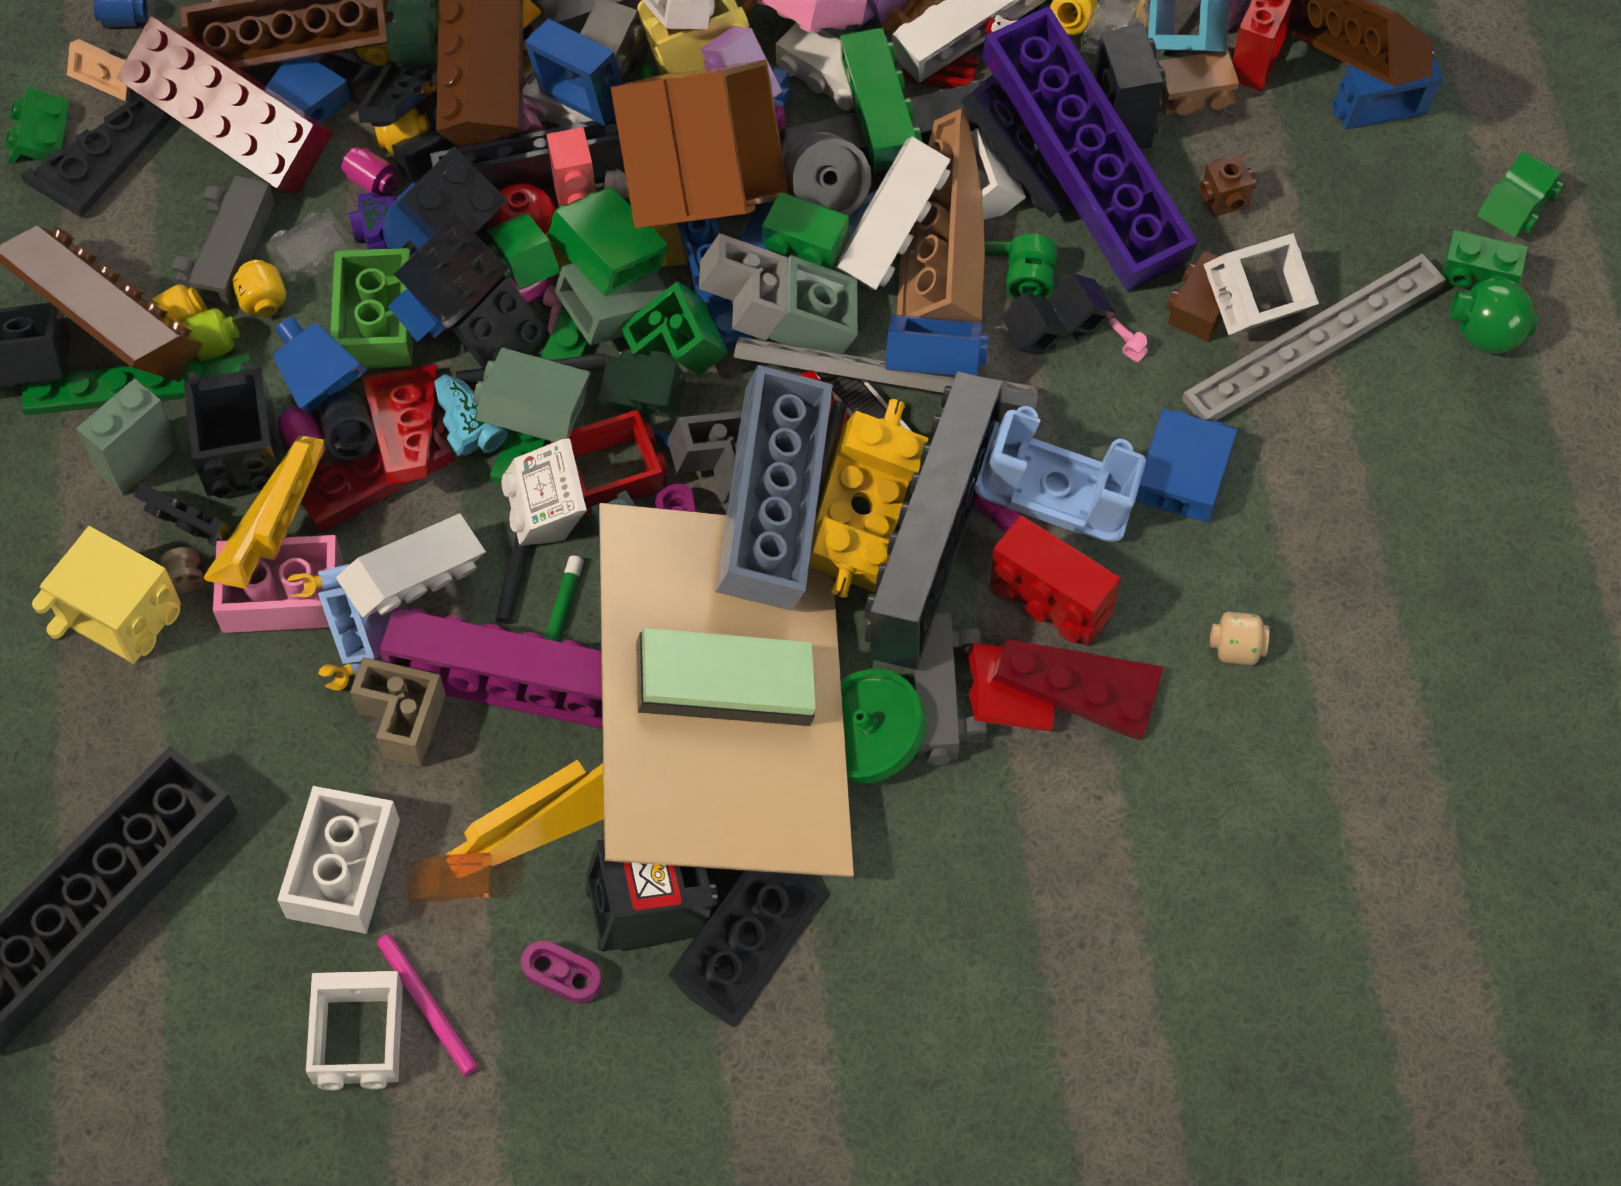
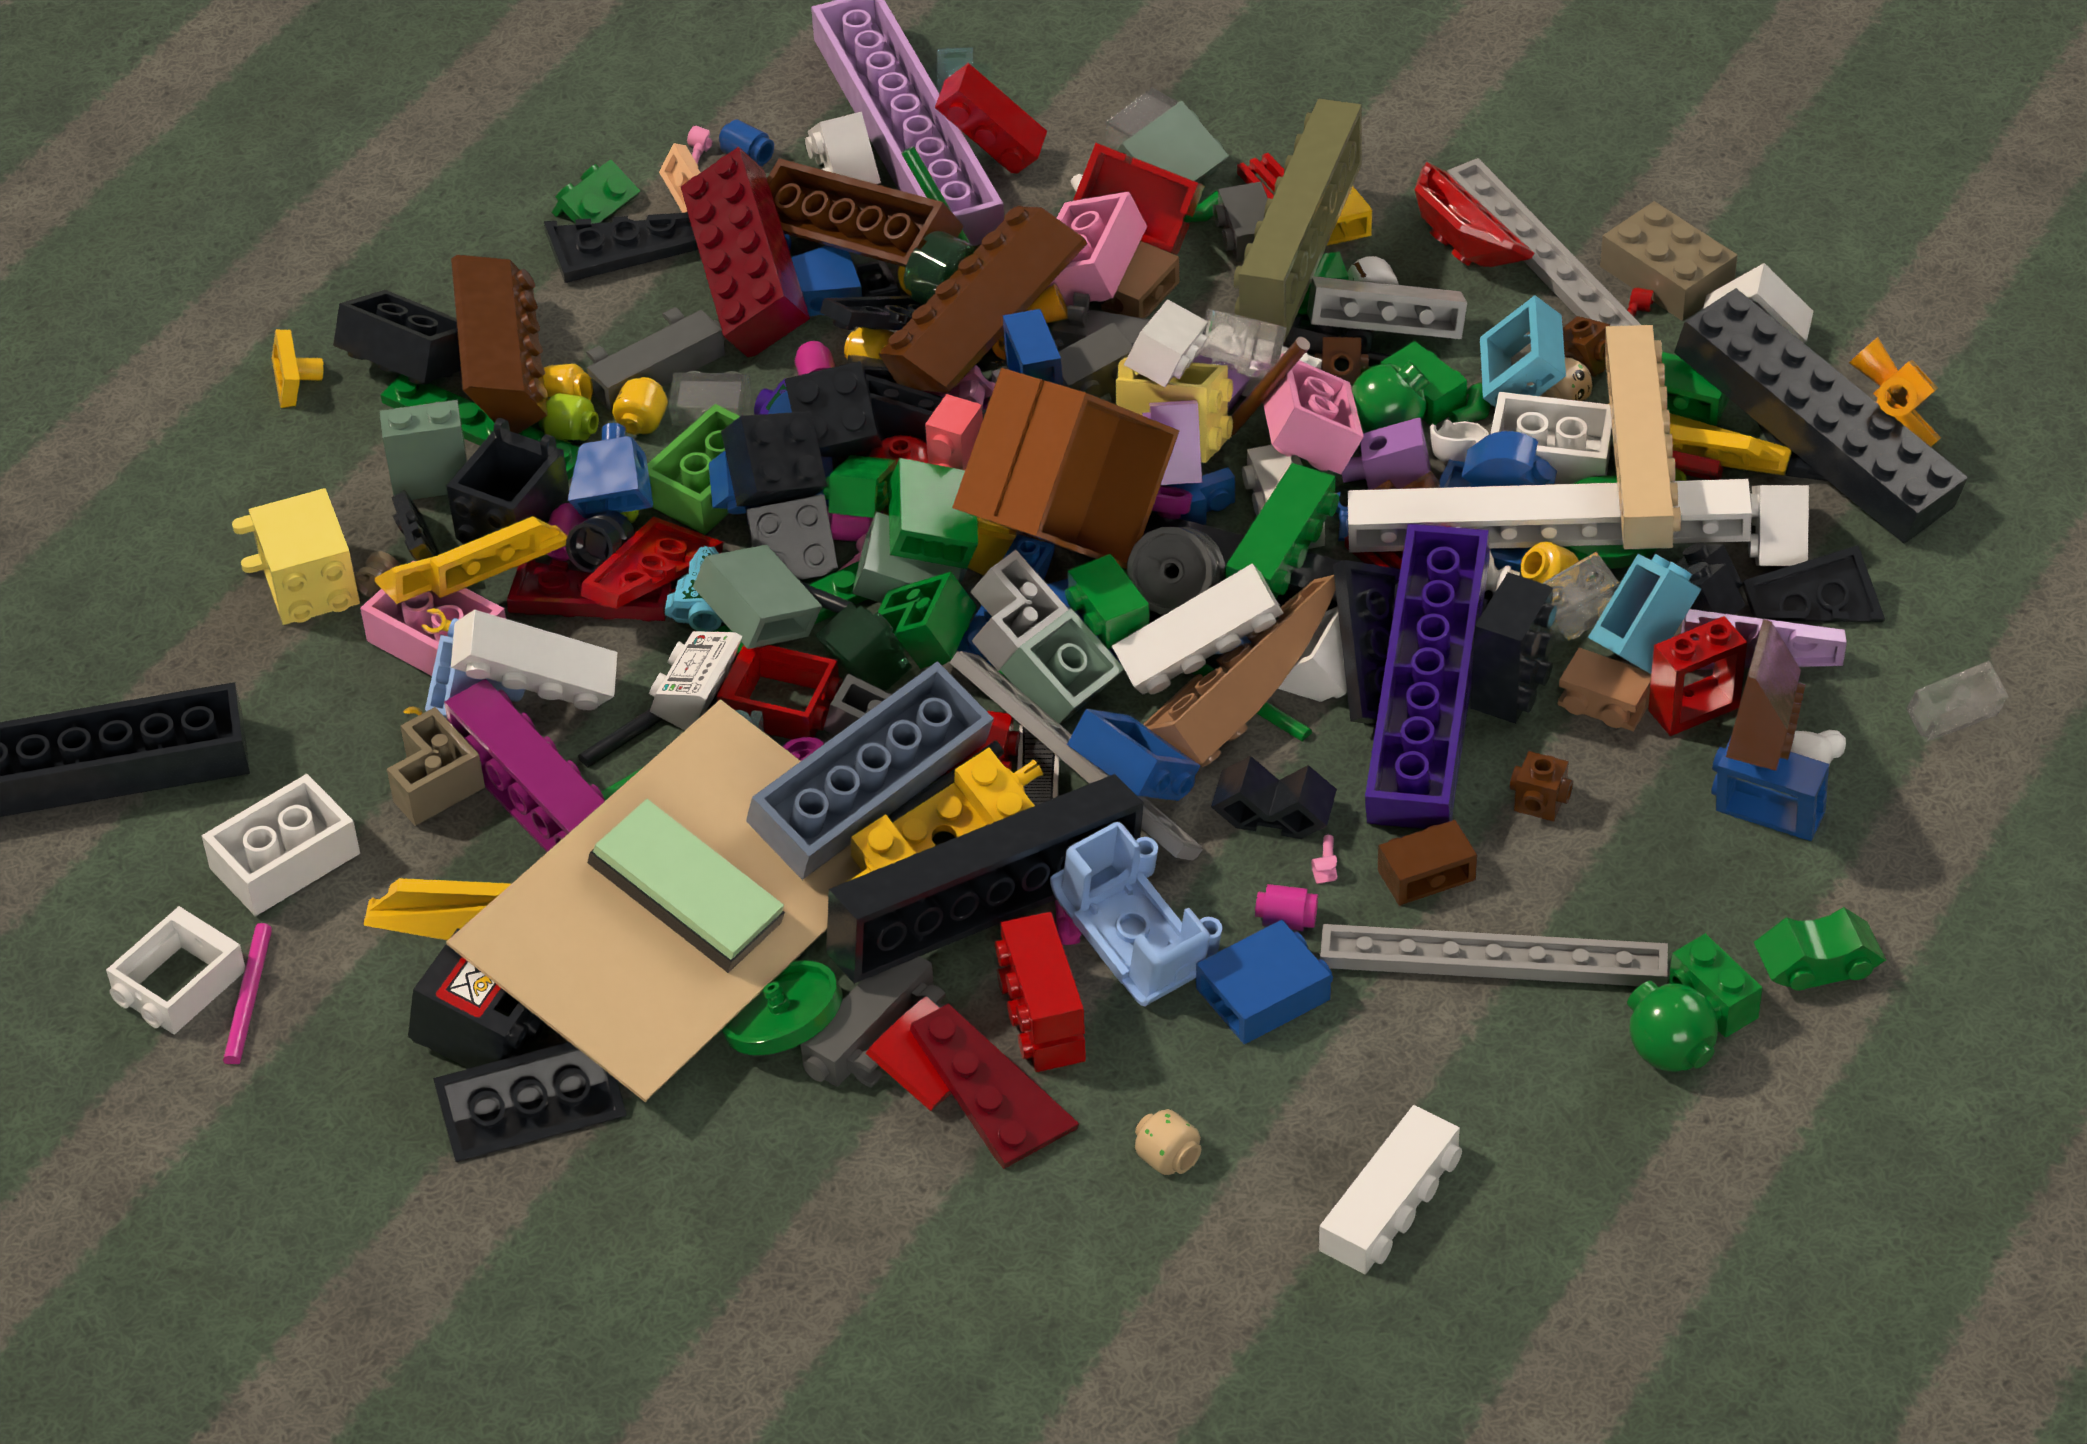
camera: 40 degrees right, 15 degrees down
(76, 27) = (699, 140): none -> bright pink hand
(450, 877) = (354, 914): clear orange slope -> none
(563, 972) = (366, 1035): magenta plate -> none
(1031, 266) = (1292, 746): green wheel -> none
(1145, 395) = (1288, 904): none -> dark pink brick
(1228, 276) = (1433, 862): white window -> none
(1424, 569) = (1390, 1190): none -> white brick

